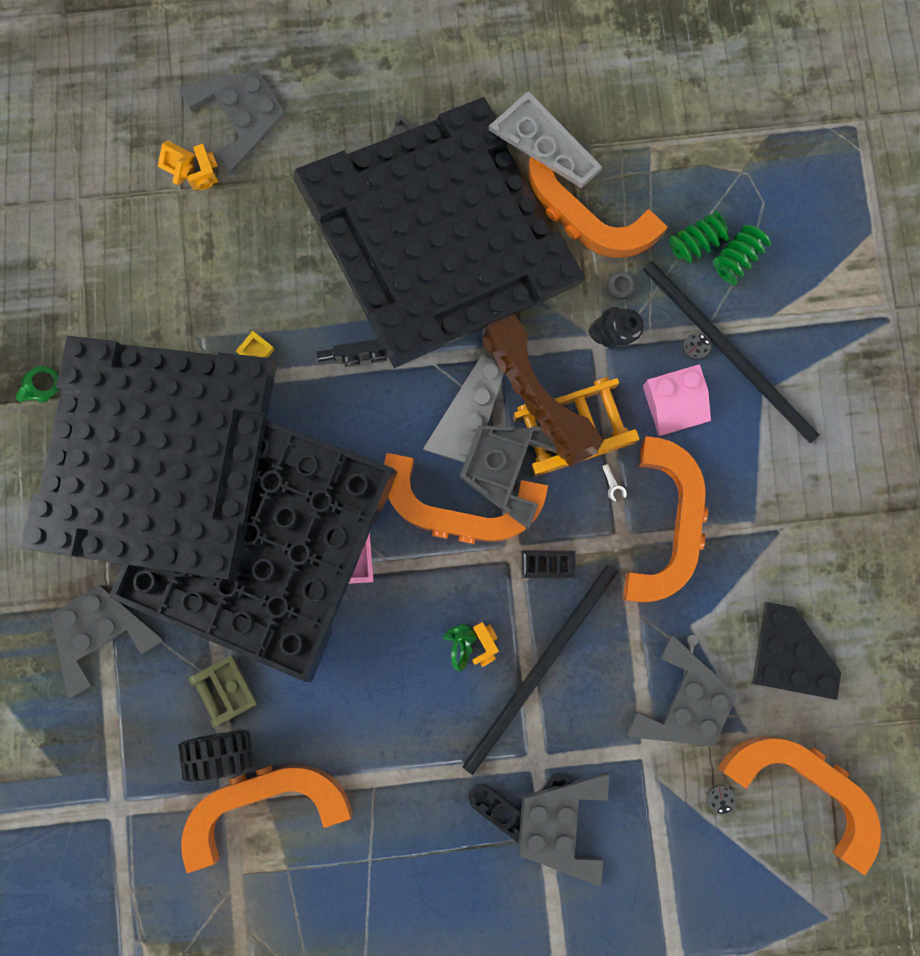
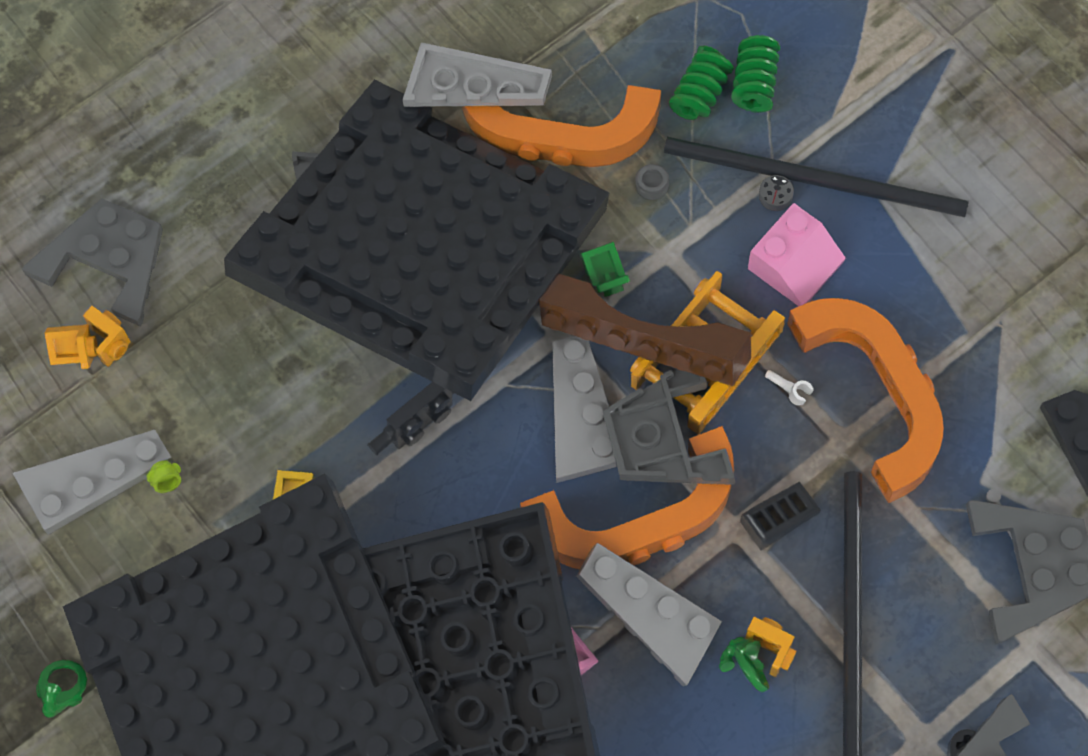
camera: 30 degrees left, 15 degrees down
(135, 259) = (83, 481): none -> light grey wing
(182, 288) = (164, 476): none -> lime plate
(424, 580) = (658, 616): none -> light grey wing
(547, 328) = (604, 269): none -> green bracket
(617, 327) = (678, 222): black head -> none

